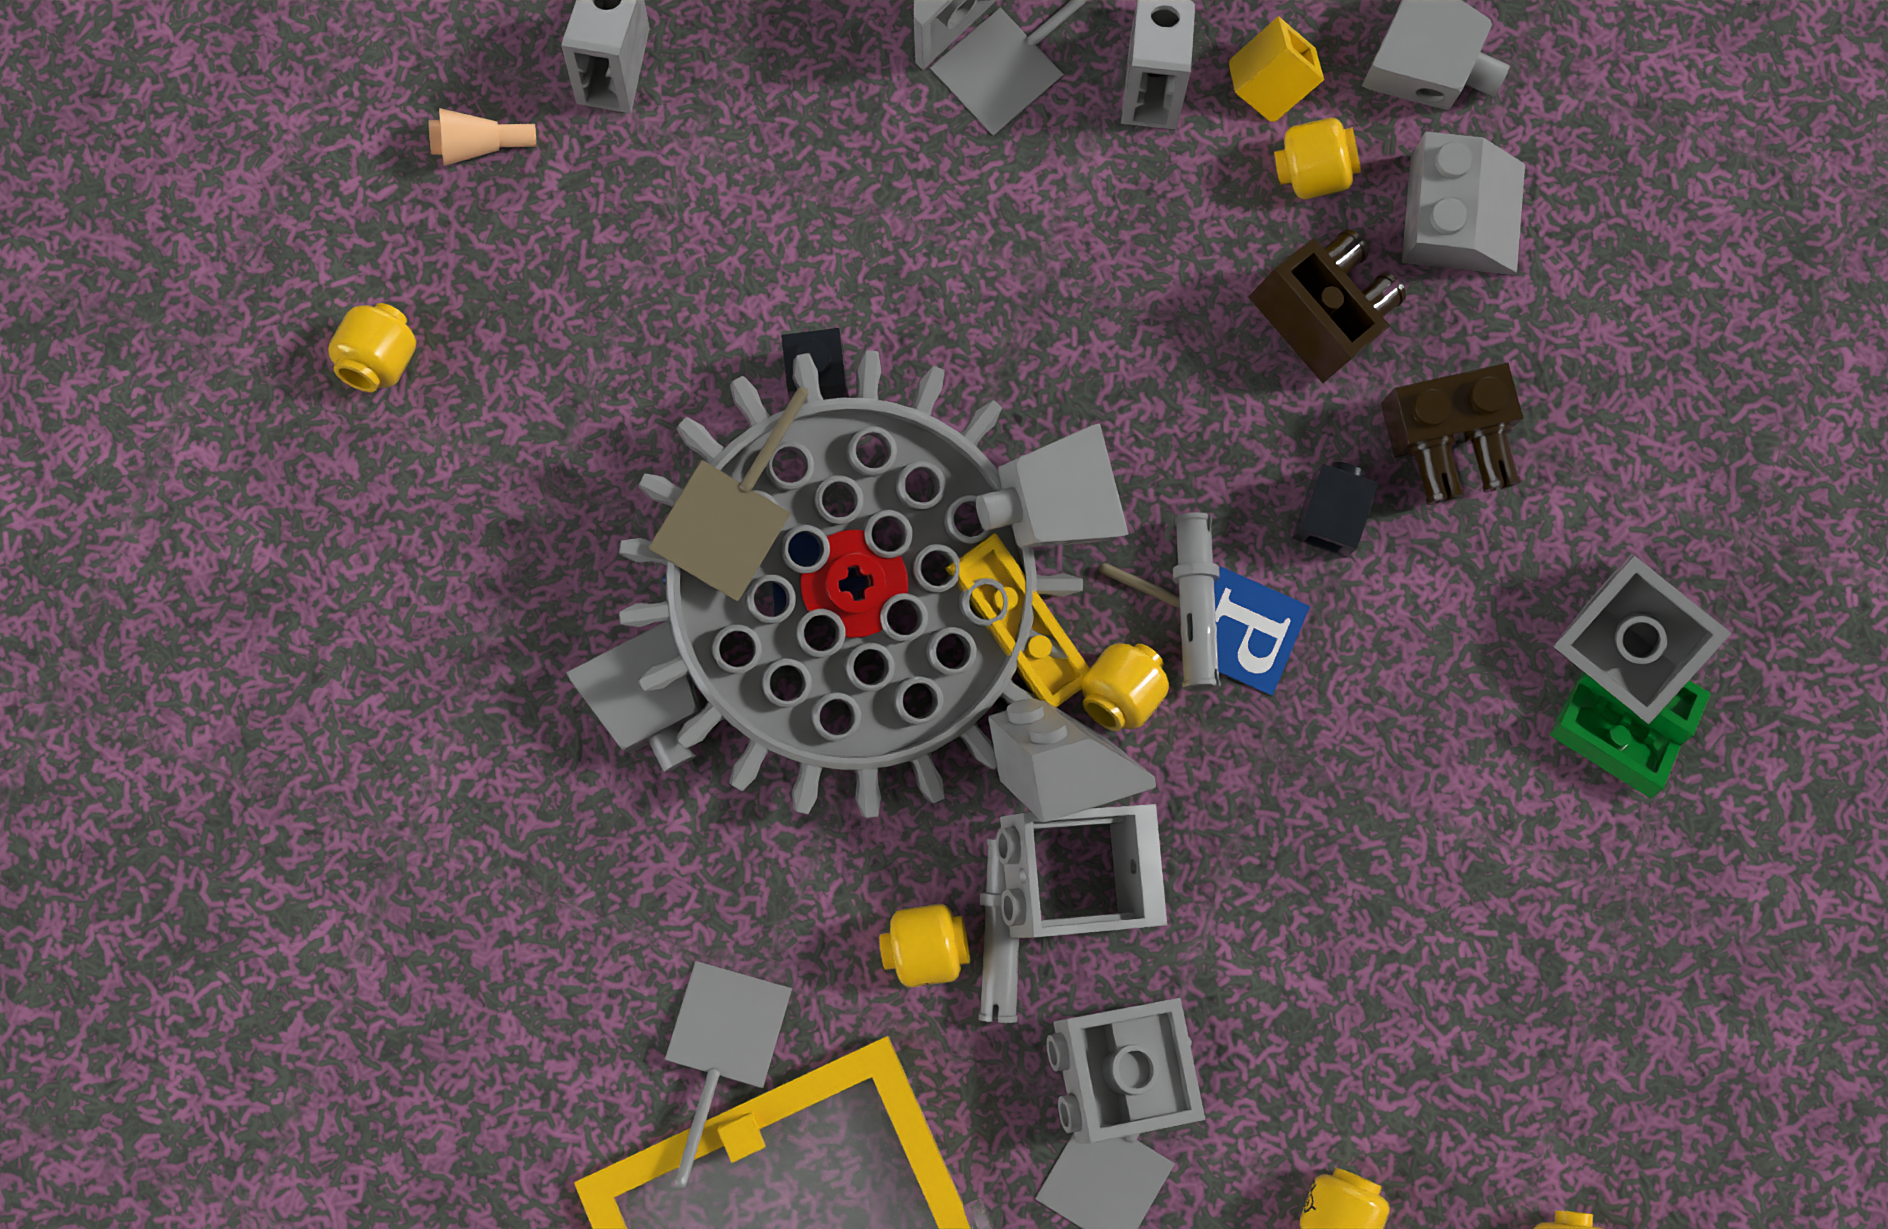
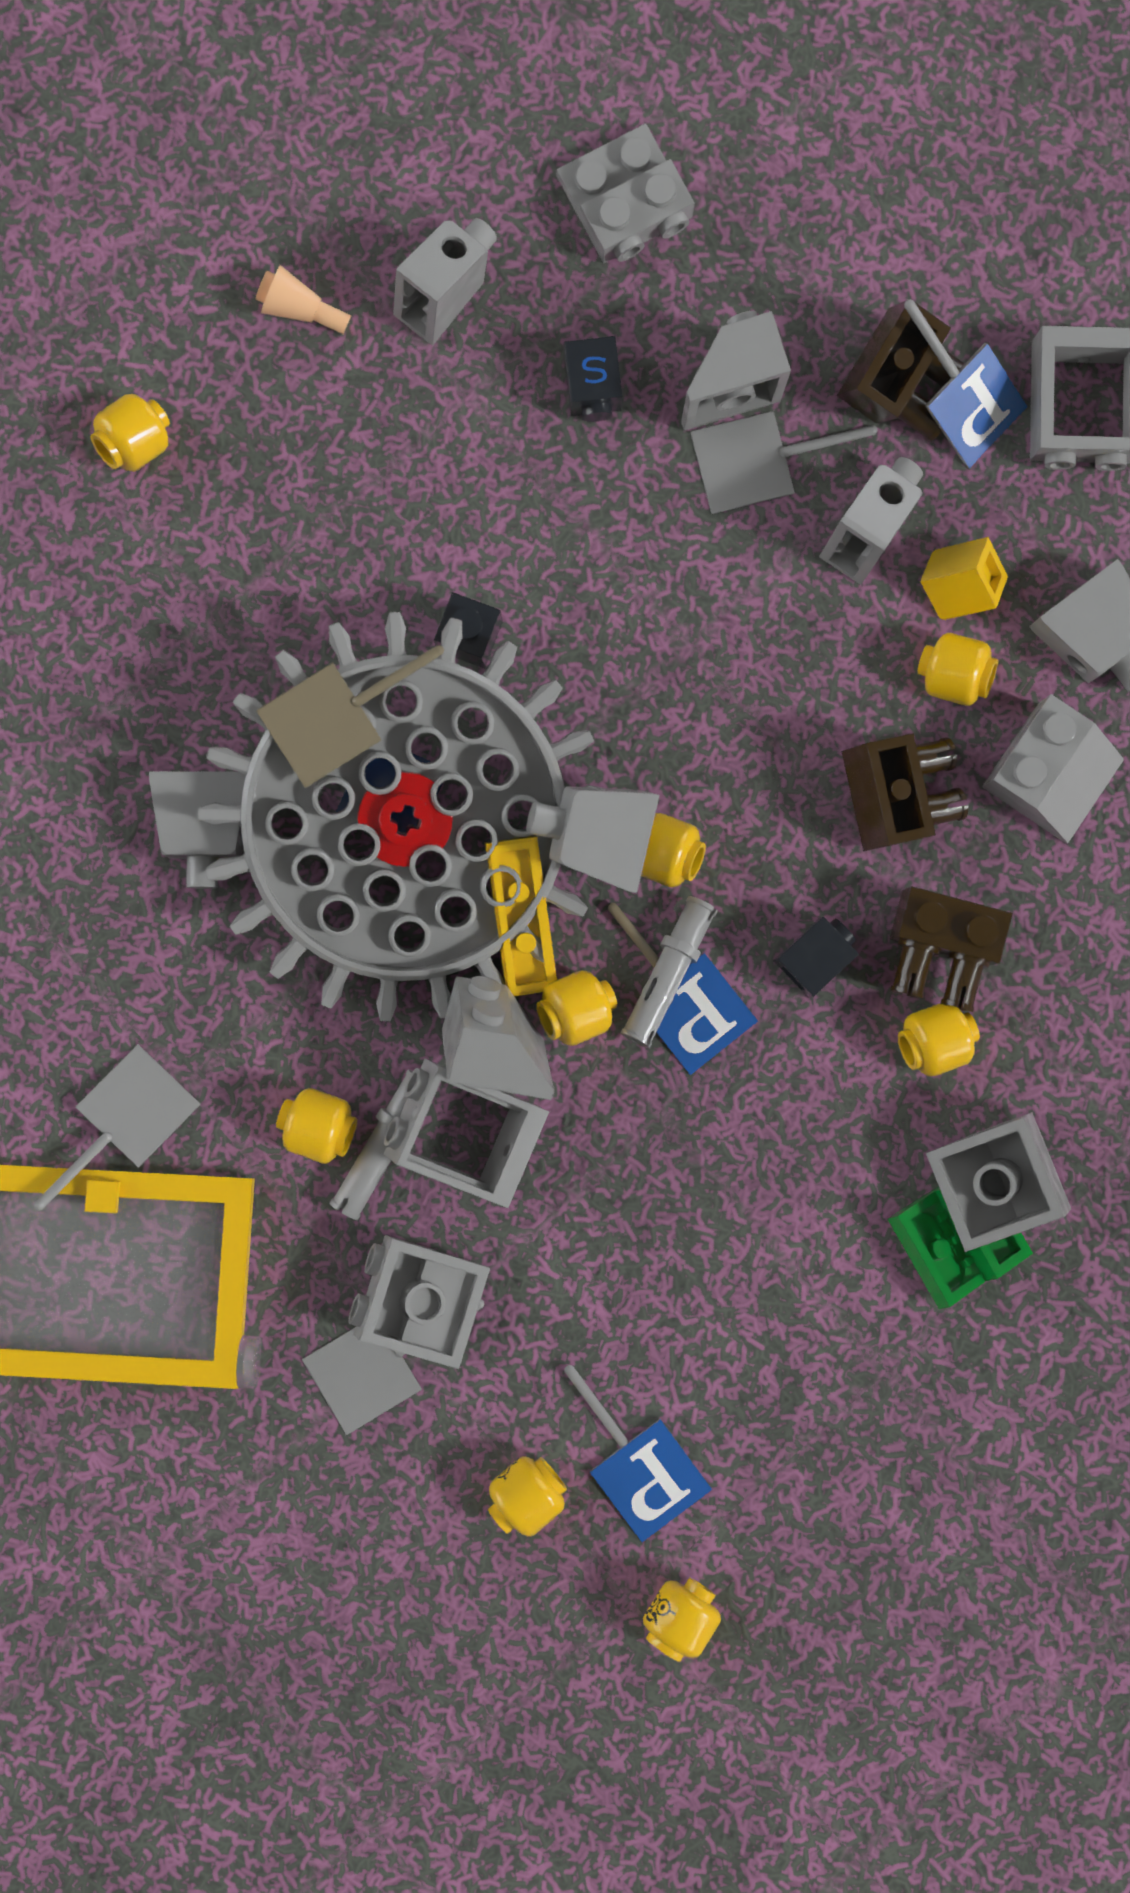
camera: 25 degrees right, 5 degrees up
(808, 61) = (593, 378): none -> black brick
(1140, 479) = (673, 851): none -> yellow head
(1451, 1129) = (648, 1476): none -> blue piece
(1500, 528) = (938, 1039): none -> yellow head

